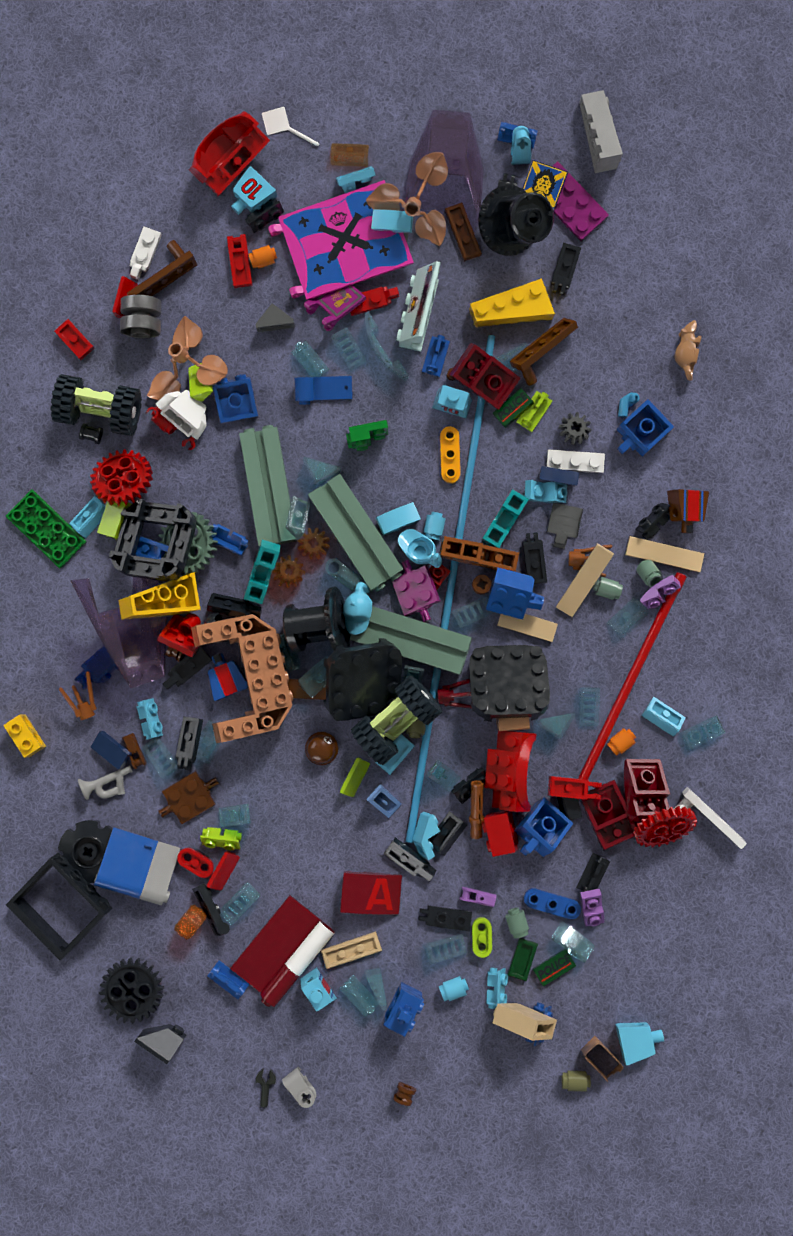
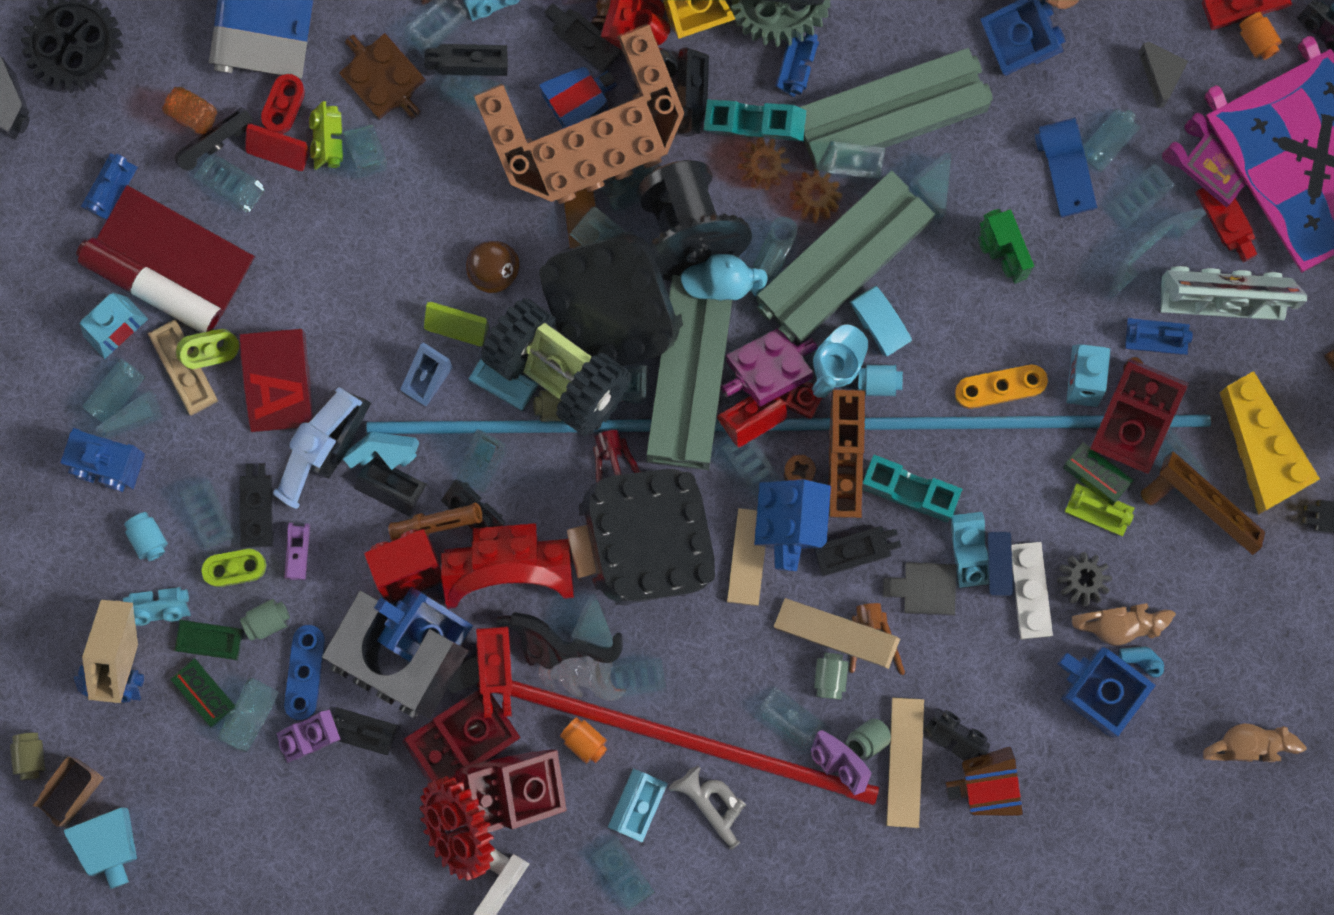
camera: 80 degrees right, 5 degrees down
(344, 934) = (206, 349): none -> lime plate
(415, 877) = (312, 445): none -> light blue plate
(447, 609) = (748, 420): none -> red slope
(549, 871) = (418, 685): none -> arch
(574, 743) = (571, 662): none -> piece
(606, 412) = (1120, 627): none -> medium nougat animal
(658, 683) = (700, 795): none -> light grey piece

